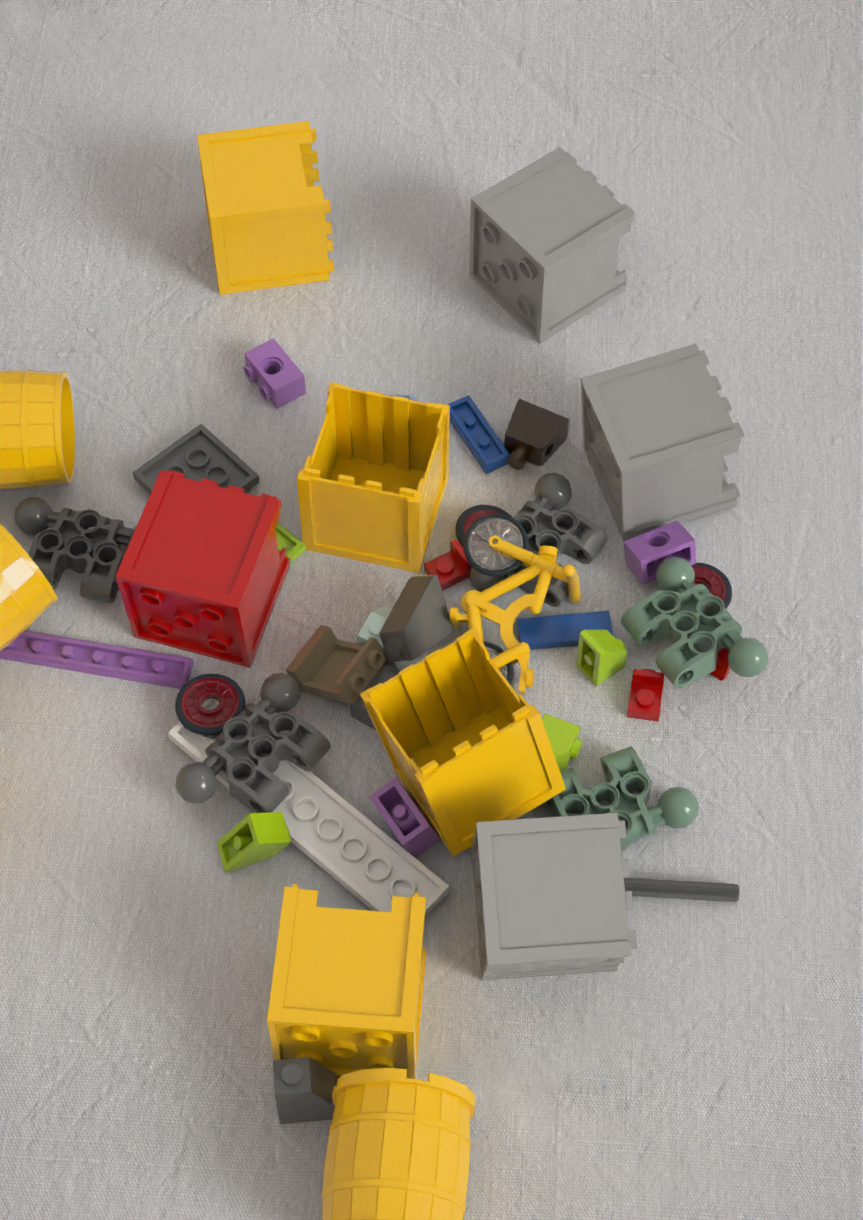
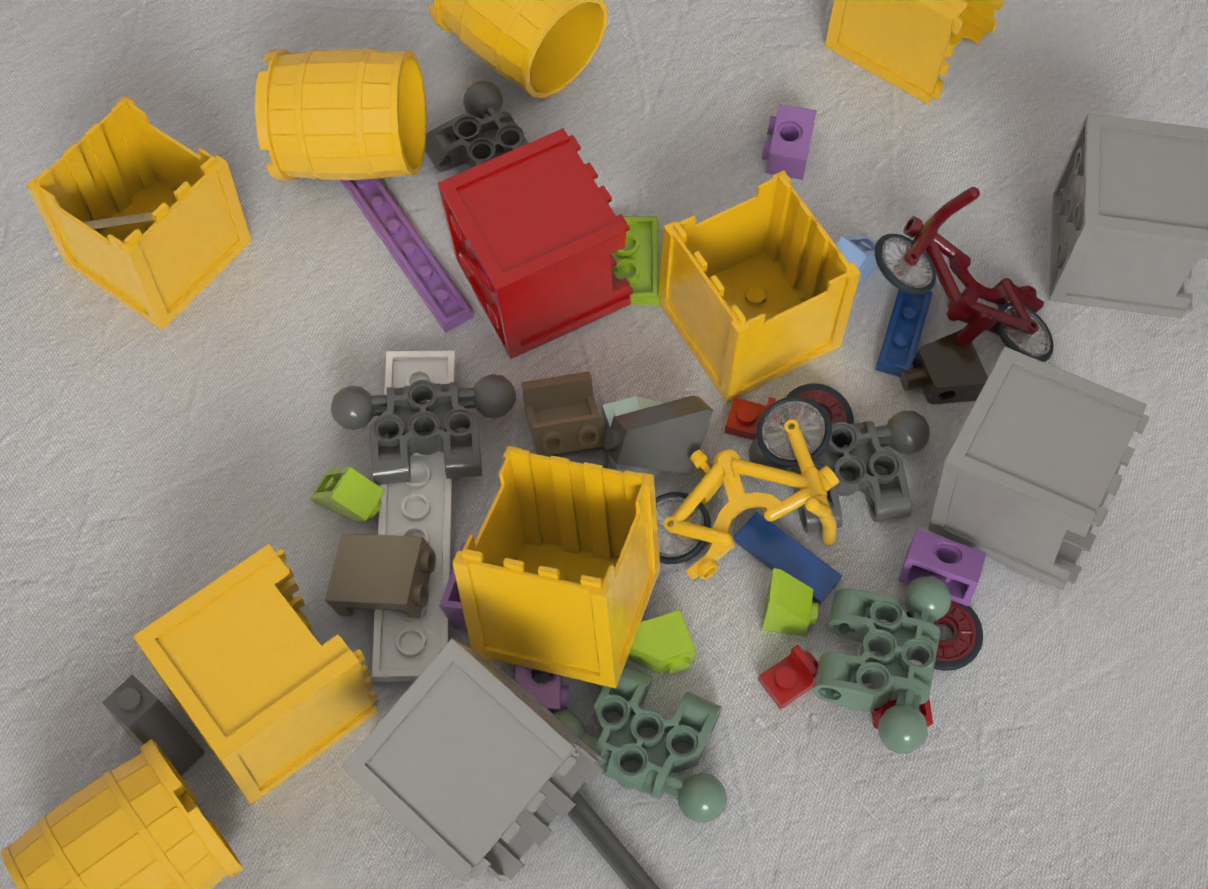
camera: 45 degrees right, 5 degrees up
(198, 456) = (641, 171): dark grey plate -> none
(205, 687) = (434, 338): dark red wheel -> none
(338, 862) = (381, 574): none -> dark tan panel
(461, 373) = (914, 267): none -> dark red piece

